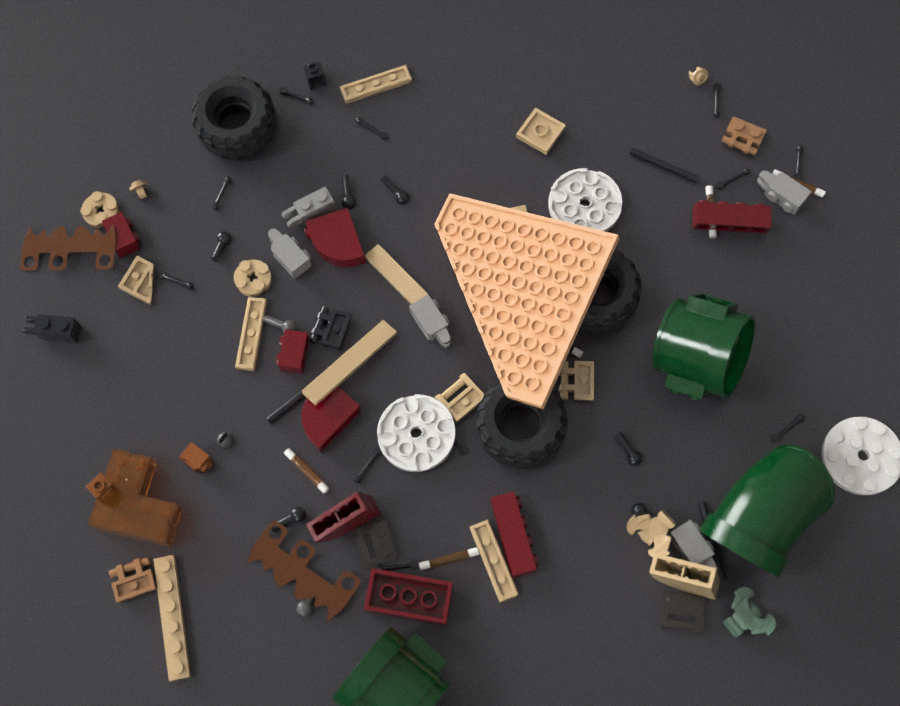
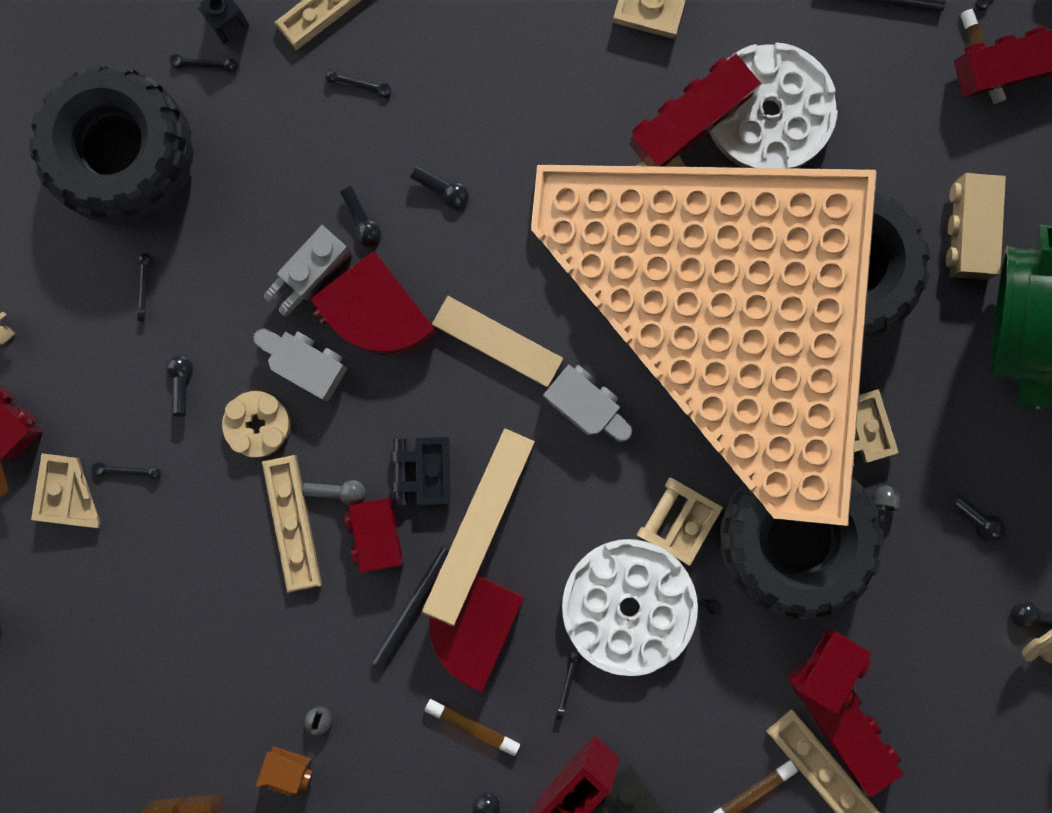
camera: 20 degrees left, 15 degrees up
(513, 495) = (833, 671): none -> dark red brick
(541, 190) = (695, 112): none -> dark red brick
(579, 422) = (886, 499): none -> dark grey hinge
(681, 286) = (976, 226): none -> tan brick

